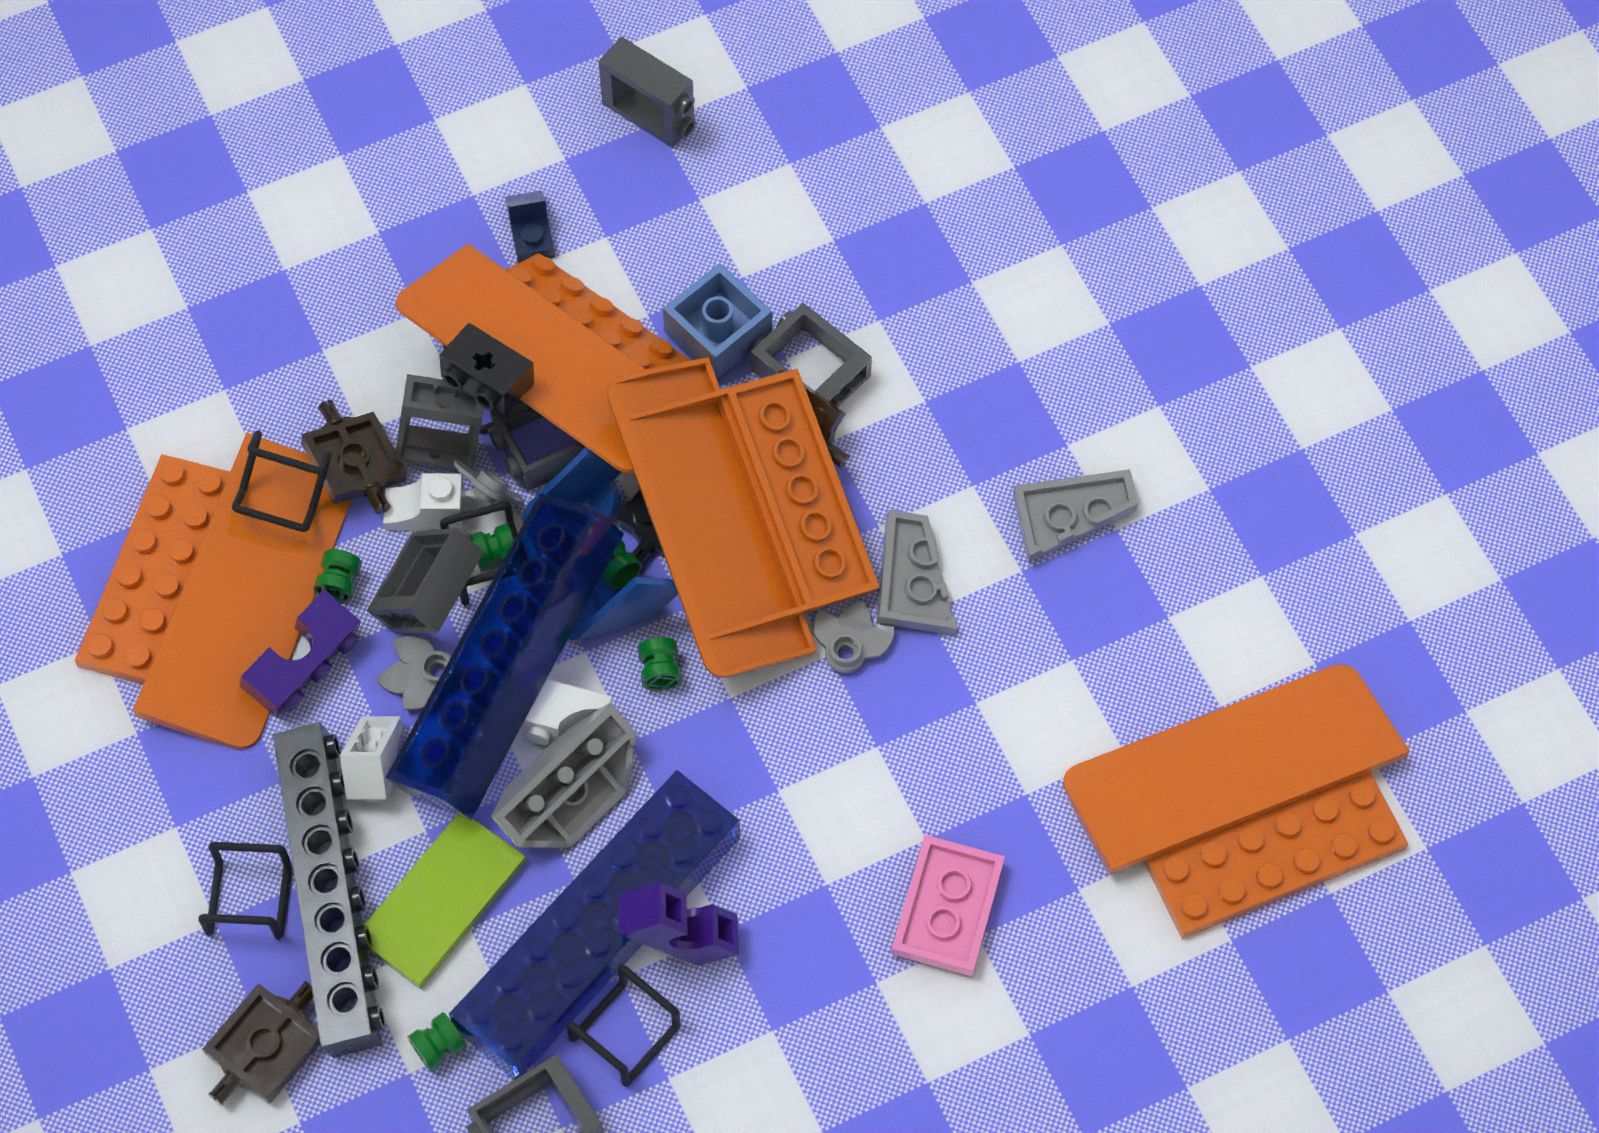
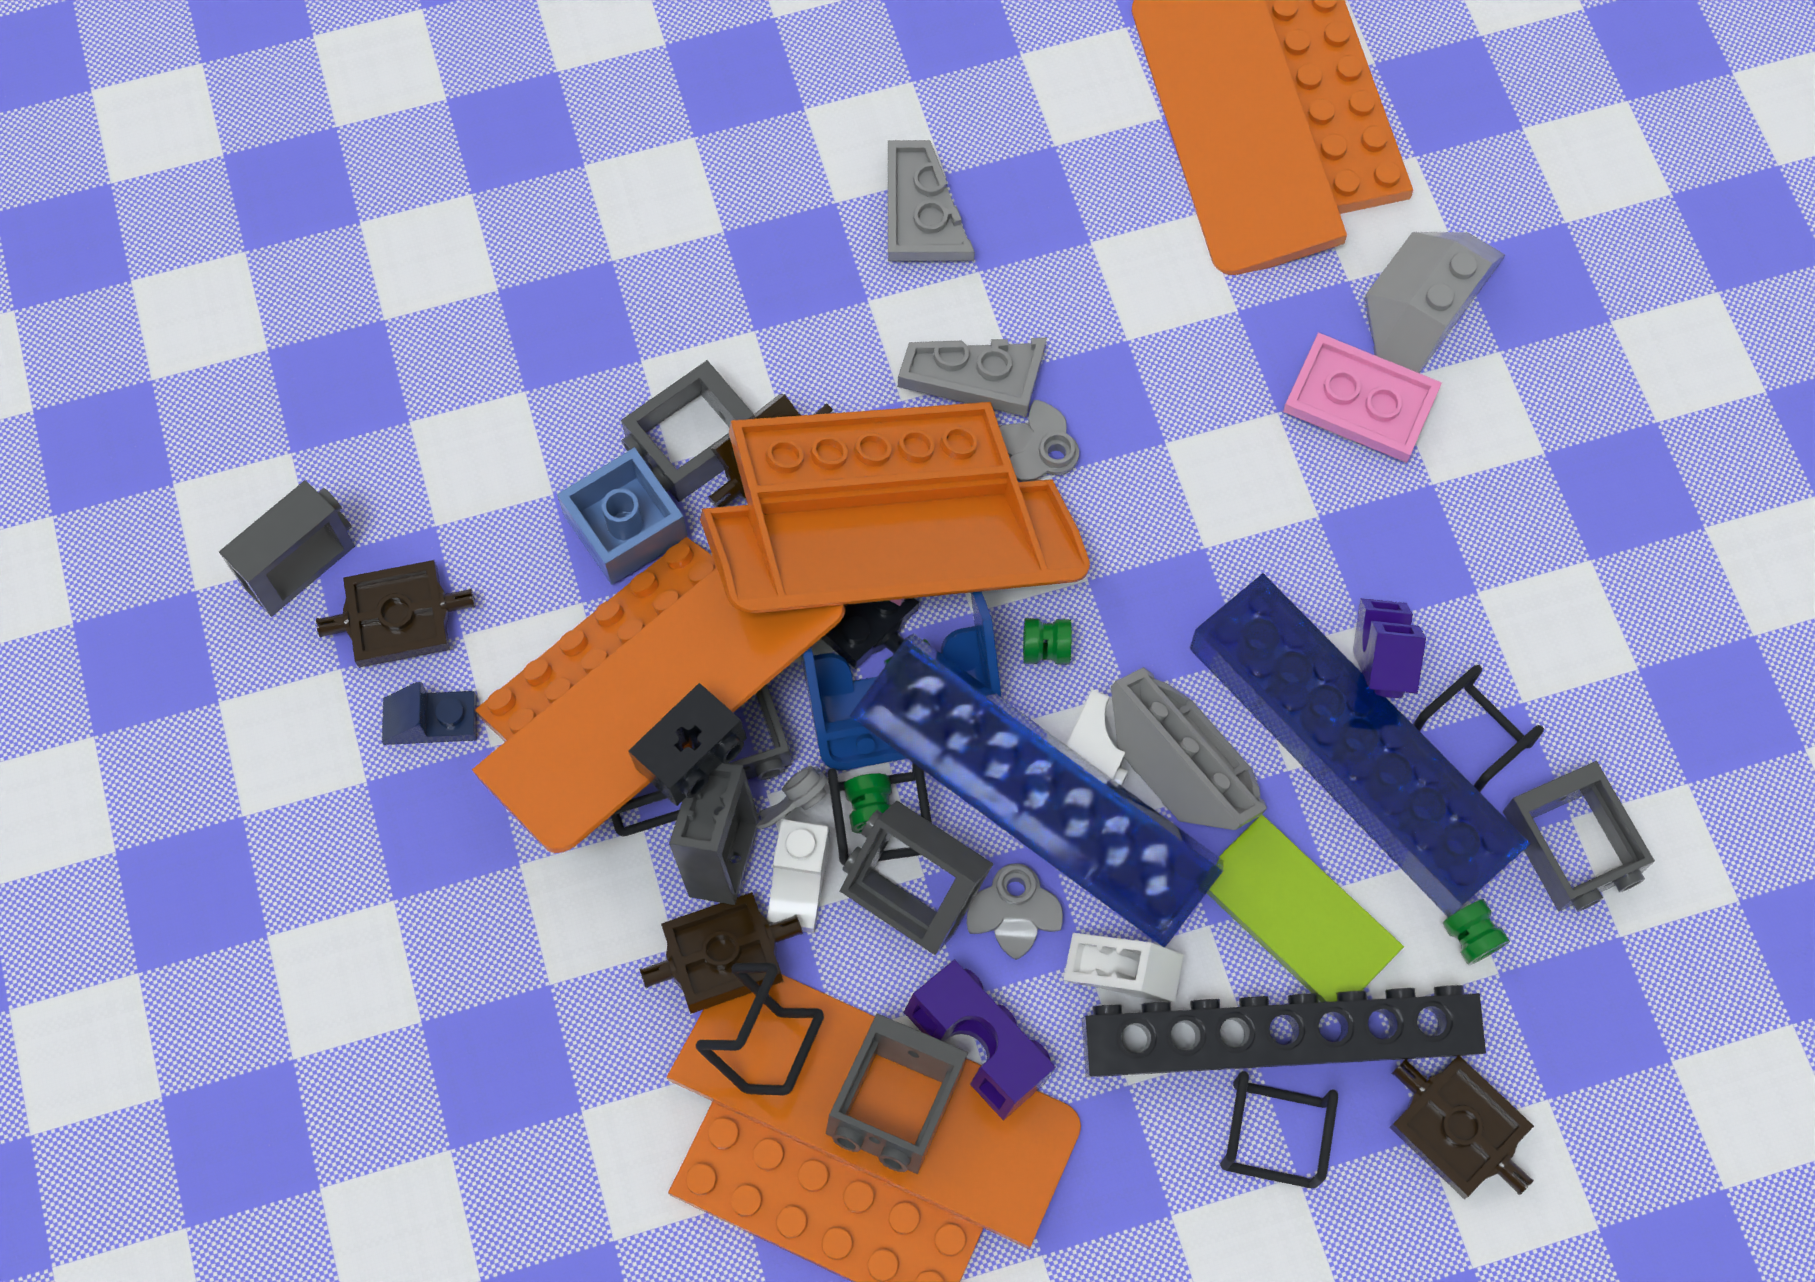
camera: 80 degrees left, 5 degrees up
(255, 563) = (912, 1051): none -> dark grey window
(338, 574) = (888, 992): green wheel -> none
(612, 182) = (396, 613): none -> dark brown plate
(1073, 957) = (1426, 294): none -> light grey wedge

